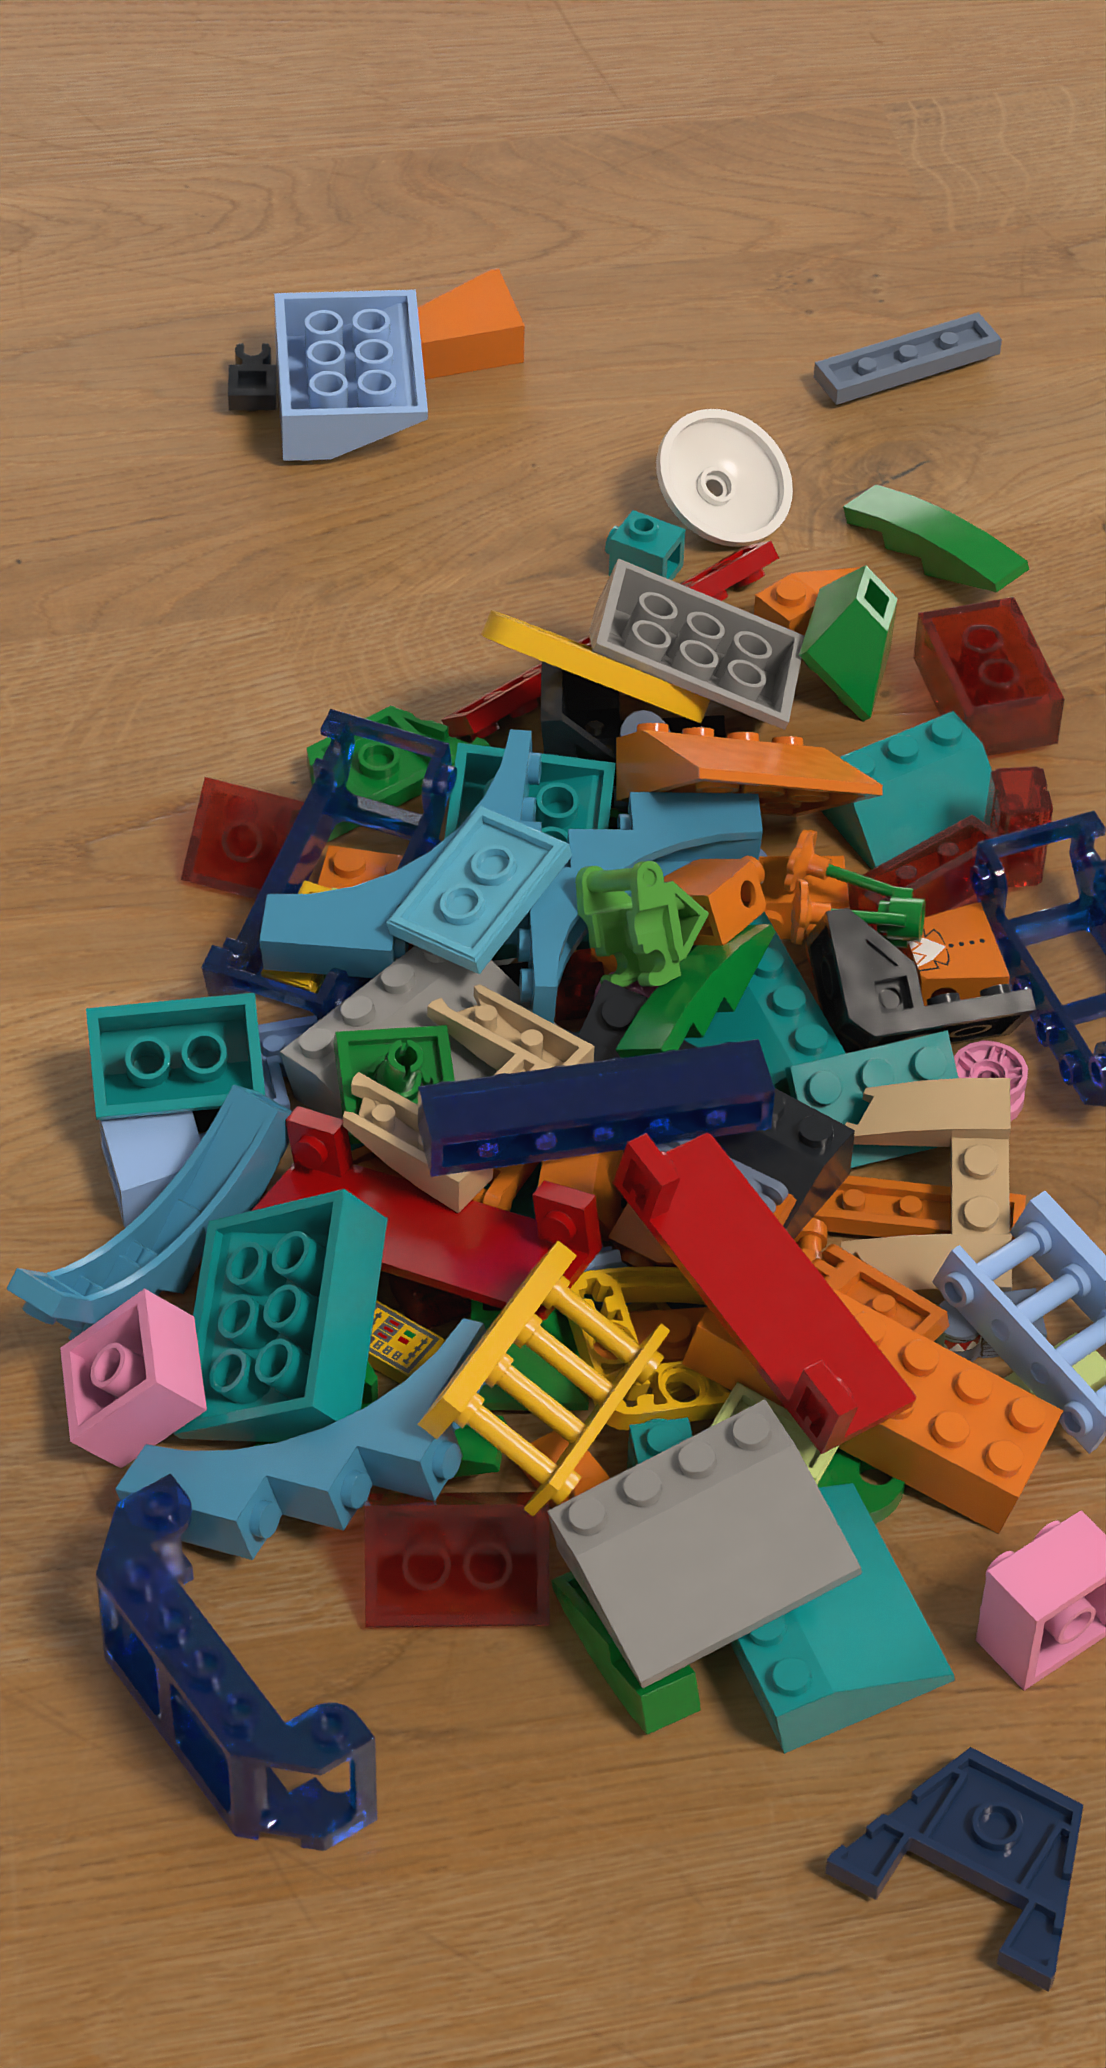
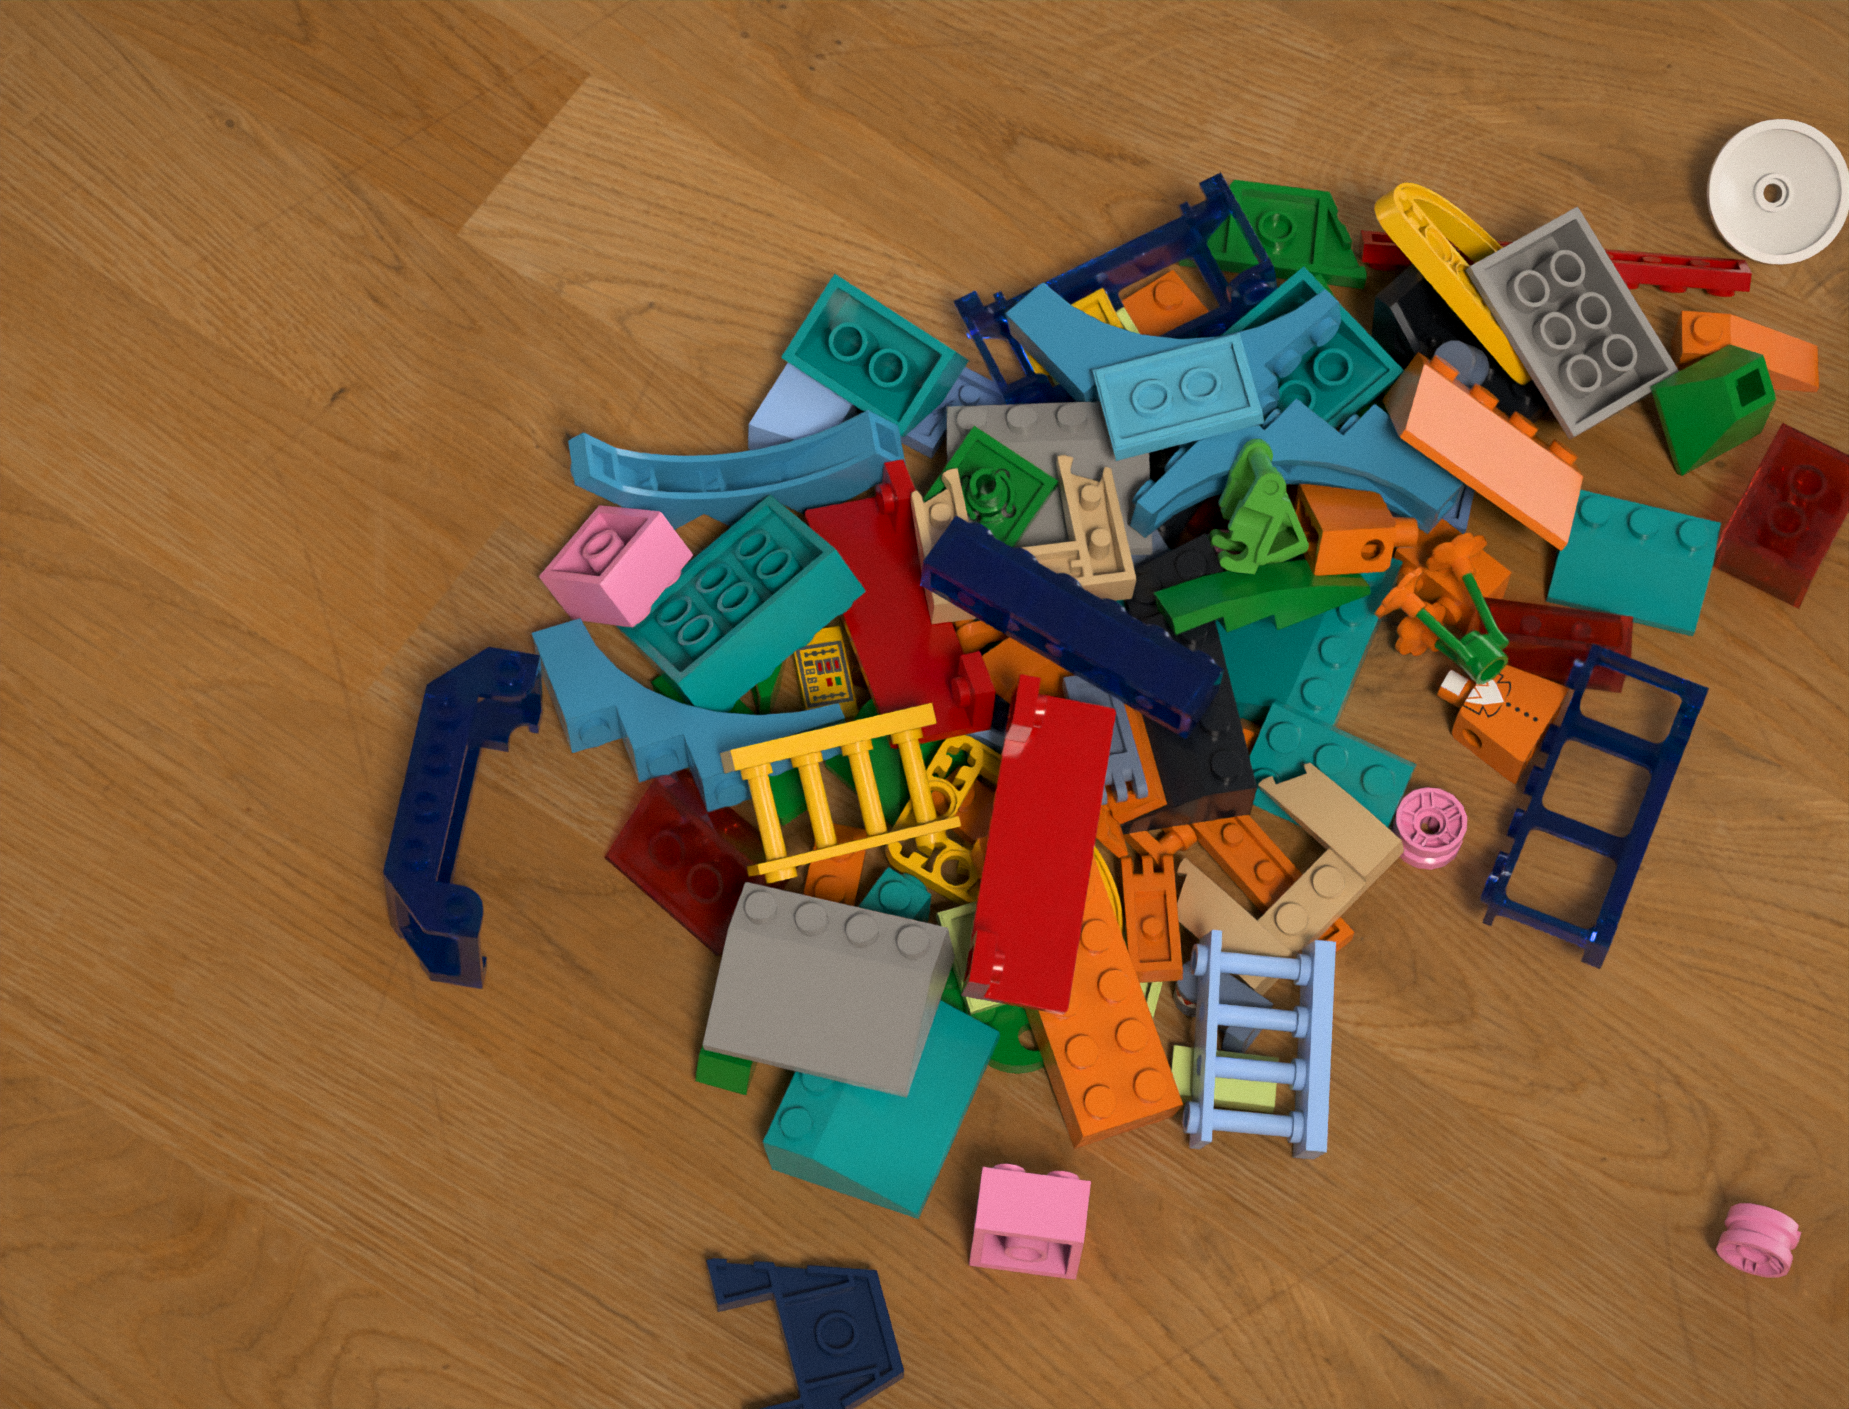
camera: 40 degrees right, 15 degrees up
(237, 836) = (1114, 207): clear red slope -> none
(647, 544) = (1658, 208): teal brick -> none
(876, 996) = (1403, 673): black bracket -> none
(1015, 803) = (1667, 643): clear red brick -> none

